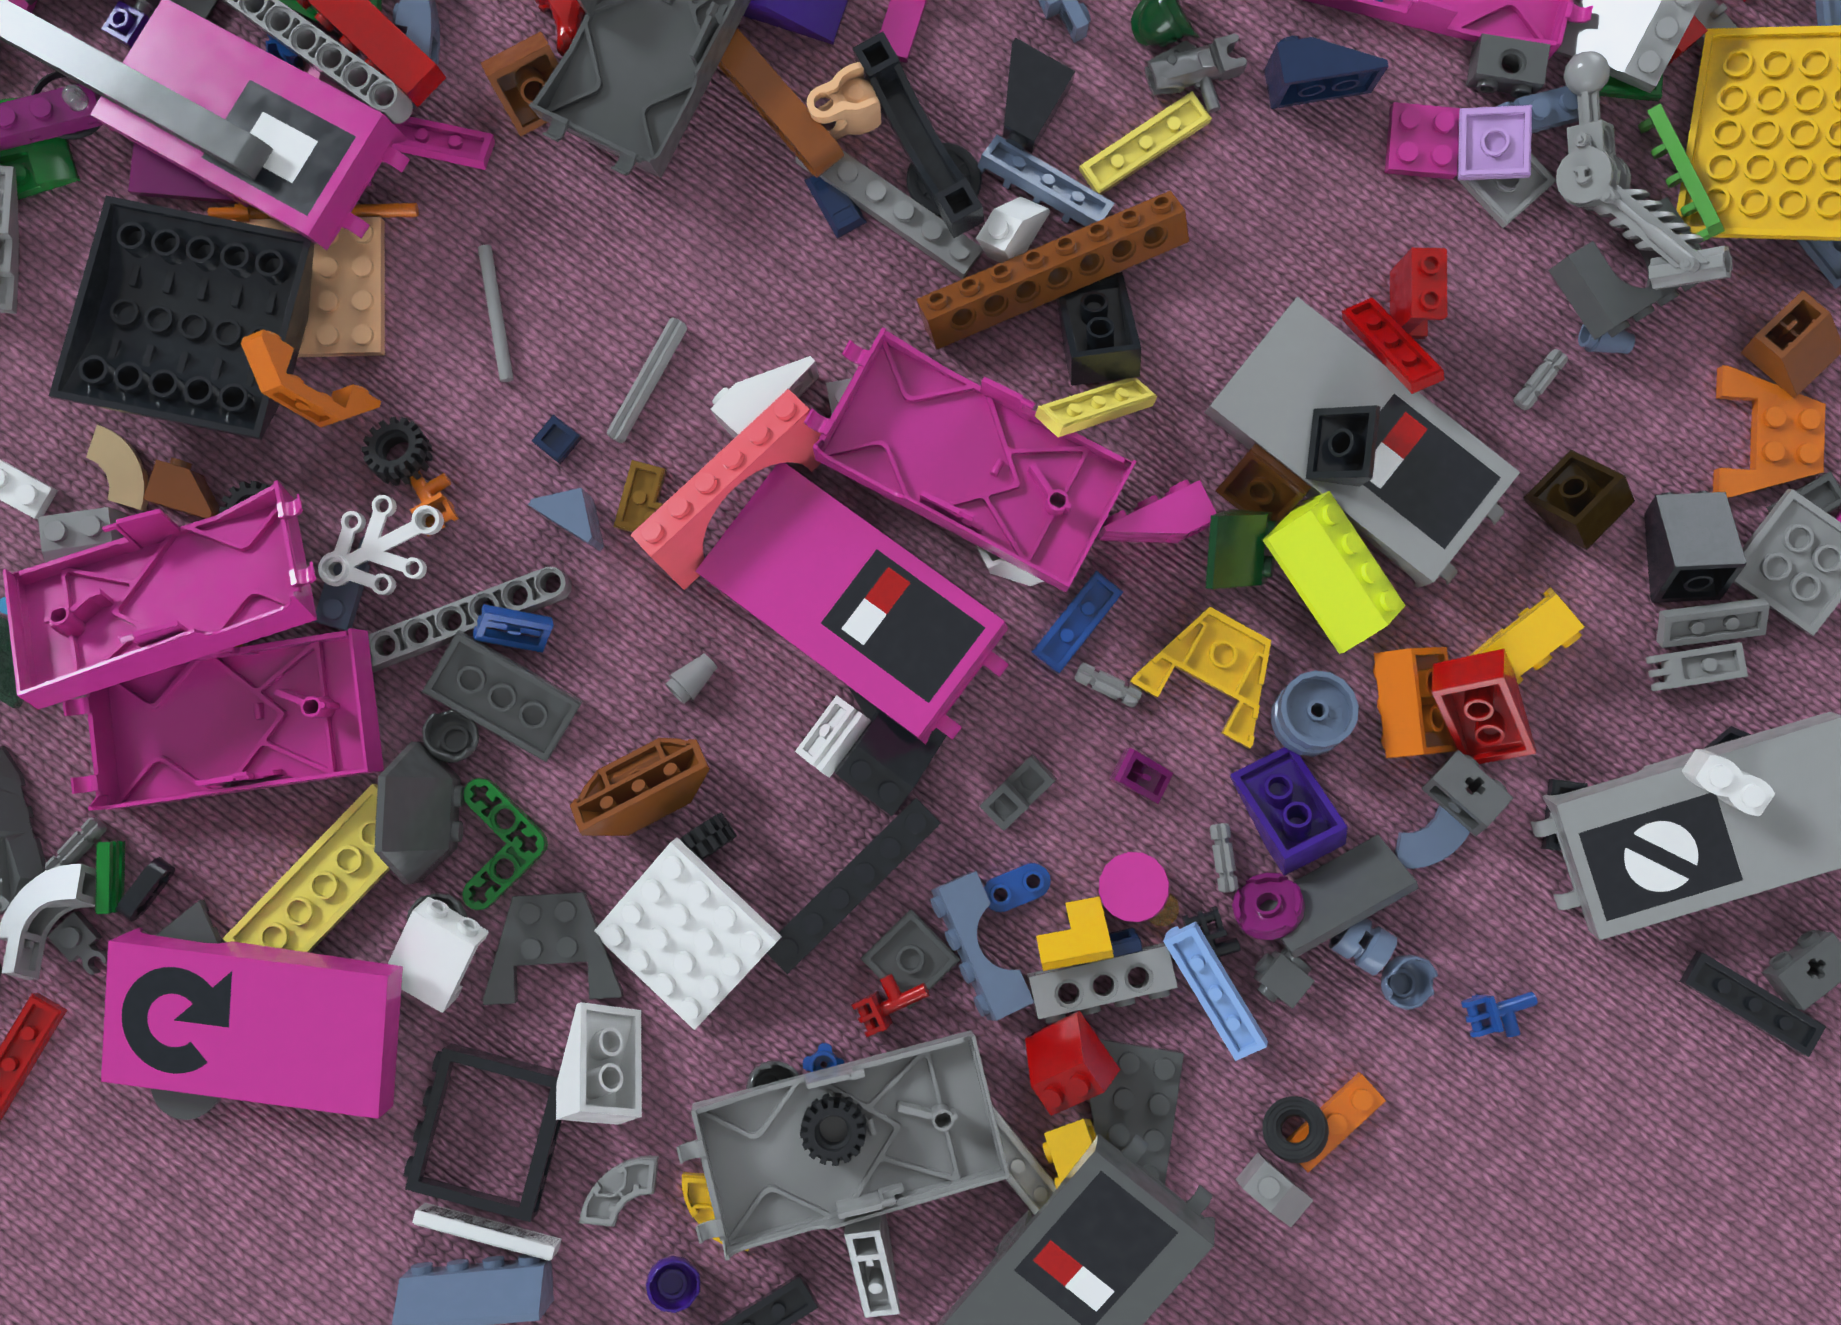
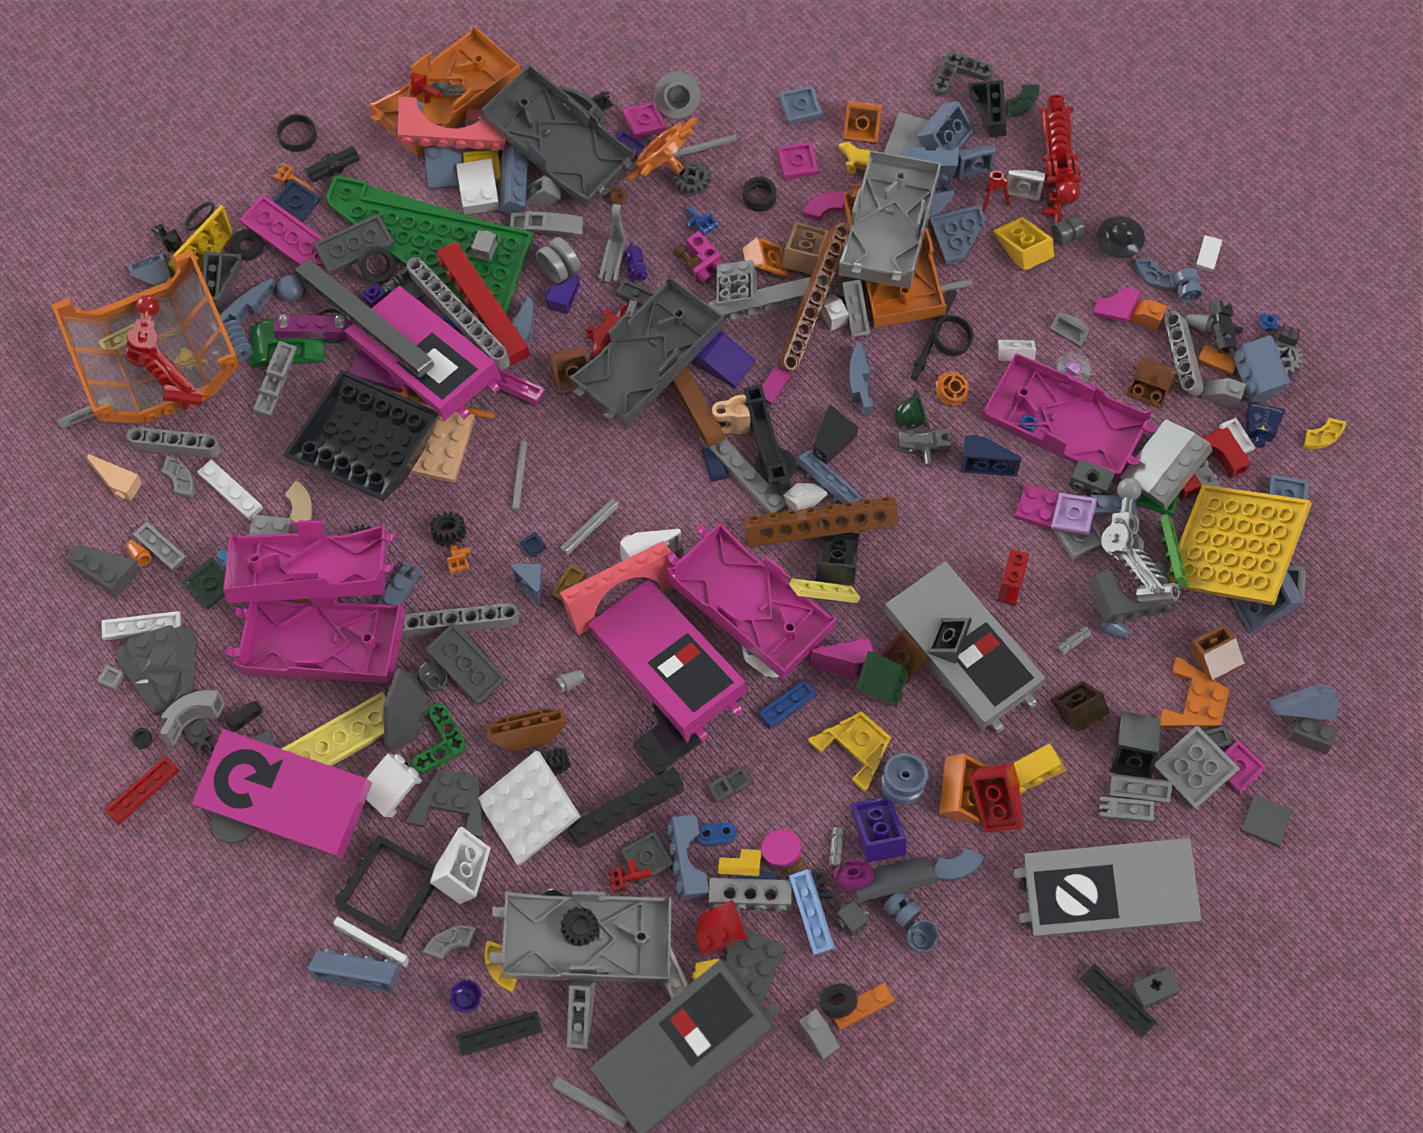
camera: 15 degrees right, 20 degrees down
(78, 844) = (218, 684): light grey axle -> none
(109, 876) = (228, 704): green tile -> none
(181, 489) = (330, 518): dark orange slope -> none
(269, 362) = (401, 462): orange slope -> none
(375, 547) = (423, 571): white plant -> none
(515, 623) = (472, 616): blue tile -> none
(833, 736) = (637, 727): white plate -> none
(1108, 685) = (796, 740): light grey axle -> none
(1141, 775) = (800, 790): magenta slope -> none
(1145, 143) = (887, 473): light yellow tile -> none
(1334, 572) = (932, 705): neon yellow slope -> none
(1393, 345) = (991, 598): red tile -> none
(1472, 810) = (979, 842): dark grey brick -> none
(1485, 1013) = (962, 963): blue arm -> none
(1728, 782) = (1121, 859): white brick -> none

